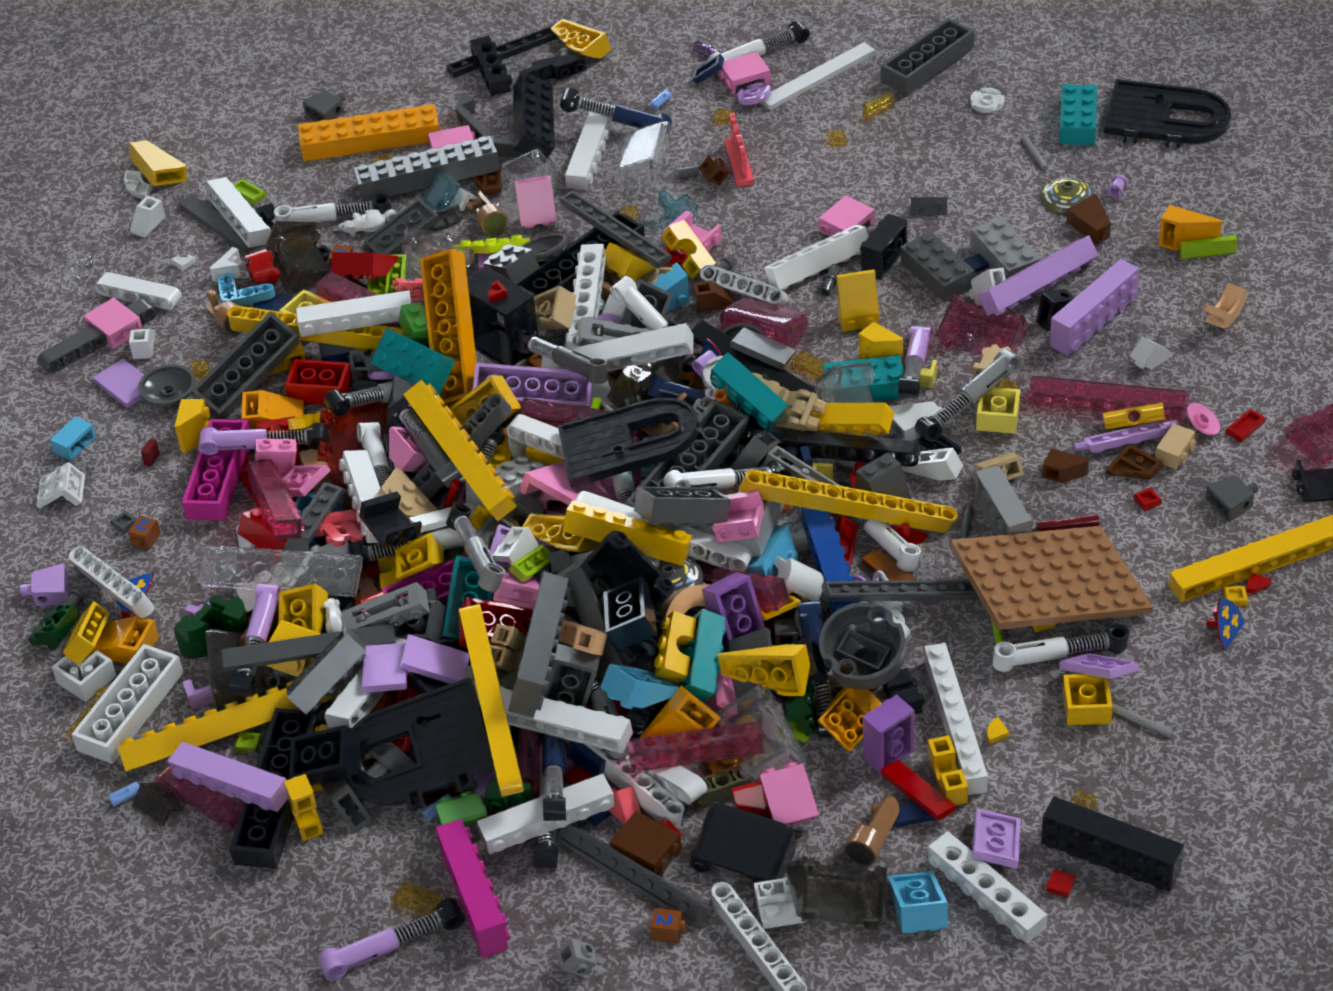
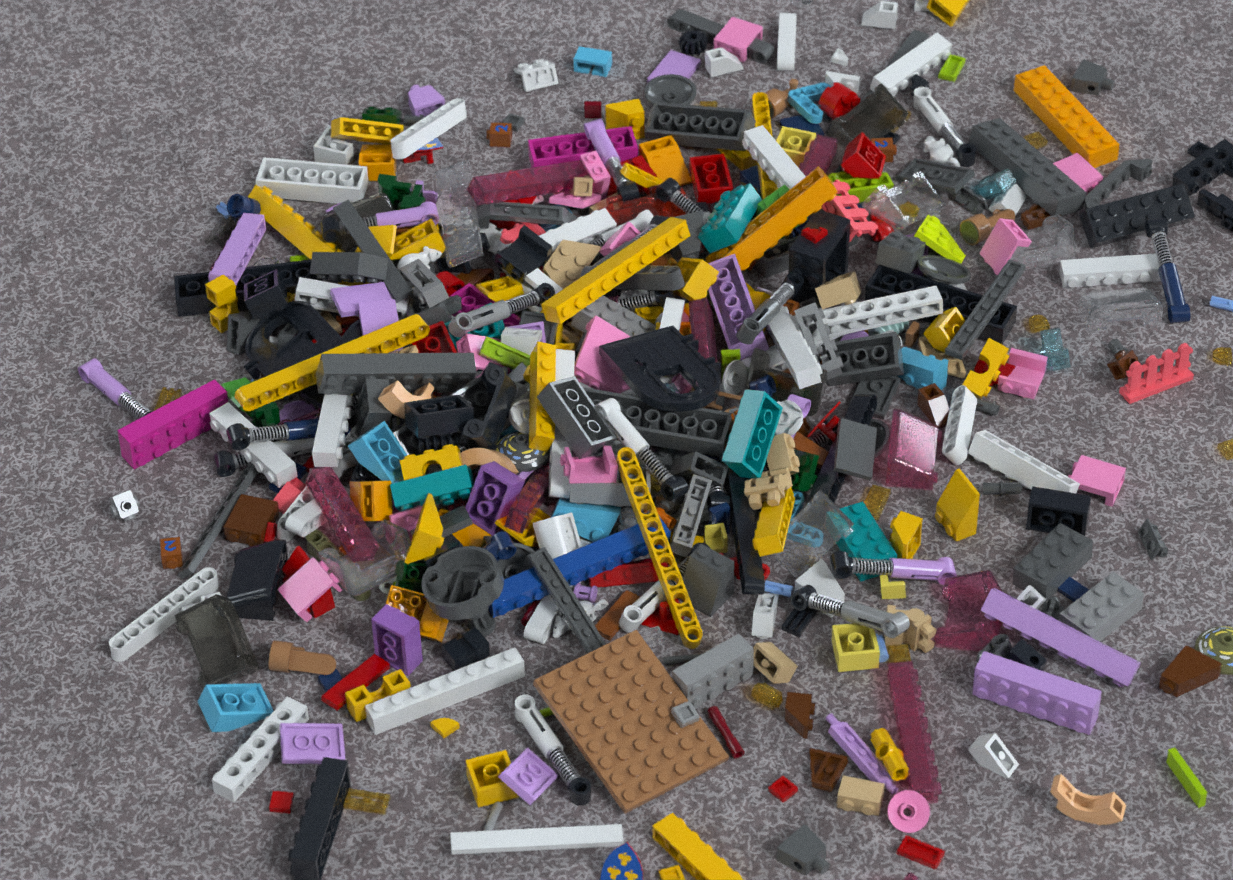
camera: 70 degrees right, 0 degrees up
(94, 357) = (693, 42): none -> black gear
(143, 768) = (241, 204): none -> dark blue wheel
(292, 467) = (582, 186): none -> tan panel
(626, 292) = (866, 327): white piece -> none
(1034, 484) = (767, 695): none -> clear yellow brick
(1039, 323) = (999, 645): none -> dark grey piece
(1057, 534) = (685, 714): none -> light grey tile
(1168, 684) = (536, 839): none -> white tile
(1185, 225) = (1195, 745): light orange slope -> none

